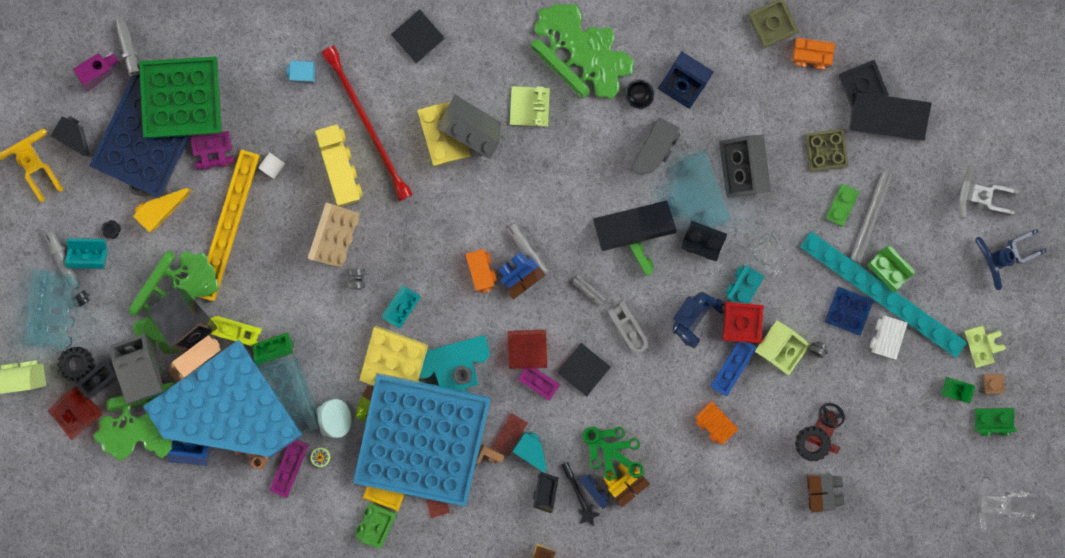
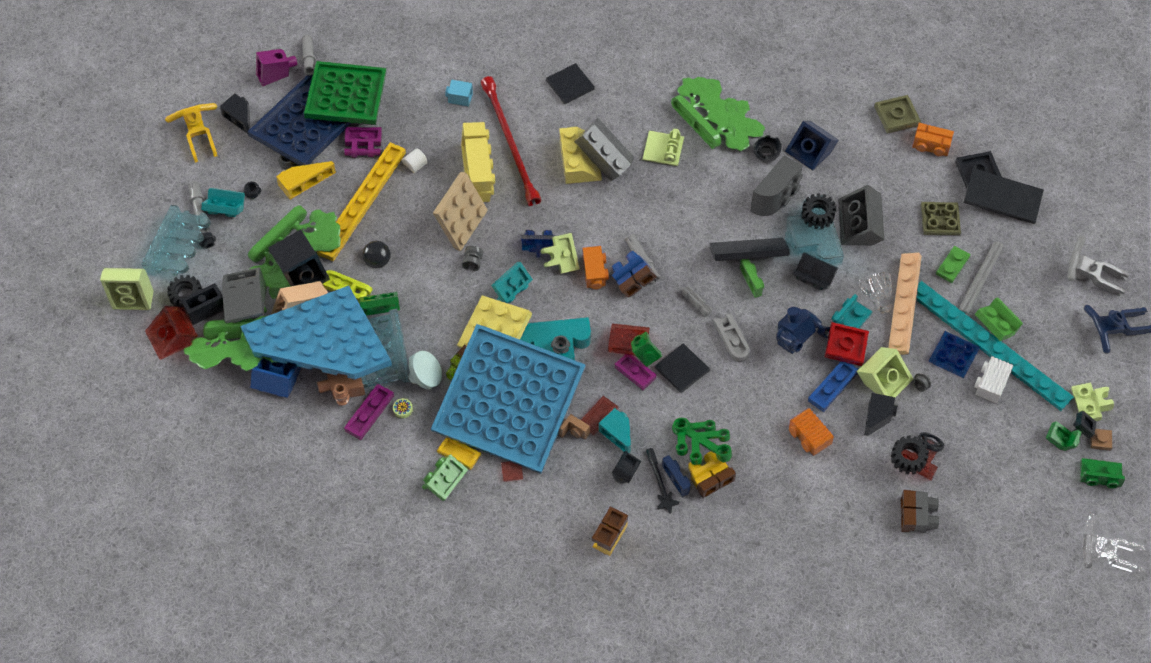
camera: 10 degrees right, 30 degrees down
(257, 287) = (376, 254): none -> black hair
(410, 249) = (535, 243): none -> clear blue hips
(445, 262) = (562, 253): none -> yellowish green plate
(544, 367) = (645, 349): none -> green bracket
(711, 169) = (818, 202): none -> black tyre
(780, 392) = (880, 412): none -> black slope
(796, 262) = (905, 302): none -> light nougat plate
(978, 375) = (1085, 424): none -> black tile

